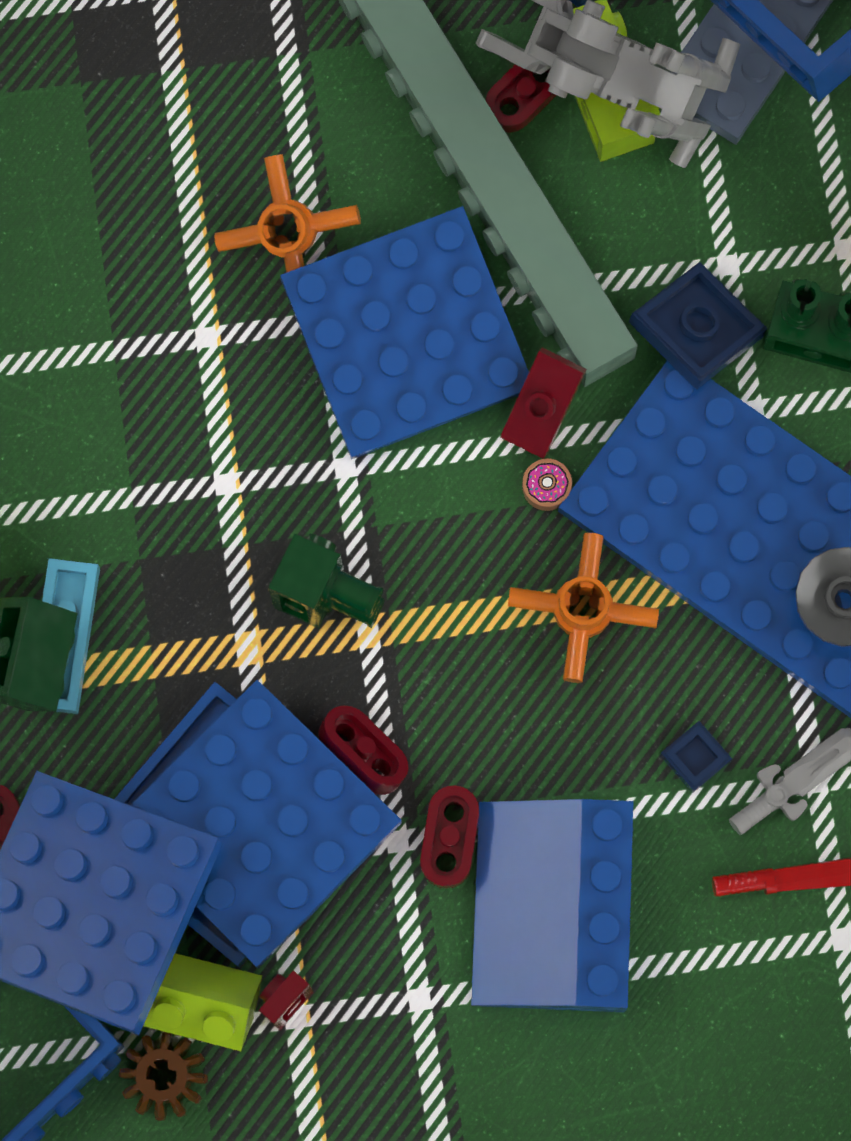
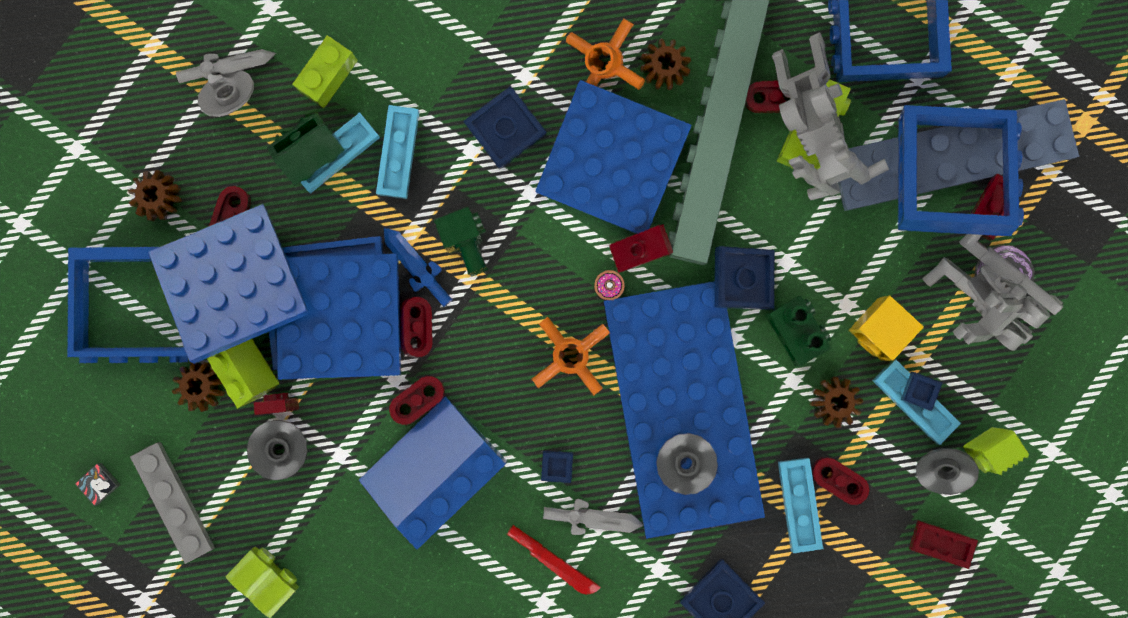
camera: 40 degrees right, 10 degrees up
(139, 564) = (397, 152): none -> medium azure plate
(241, 417) = (505, 127): none -> dark blue tile
(293, 679) = (416, 266): none -> blue sword
(329, 1033) = (262, 451): none -> dark grey dish
(374, 156) = (668, 53): none -> reddish brown gear

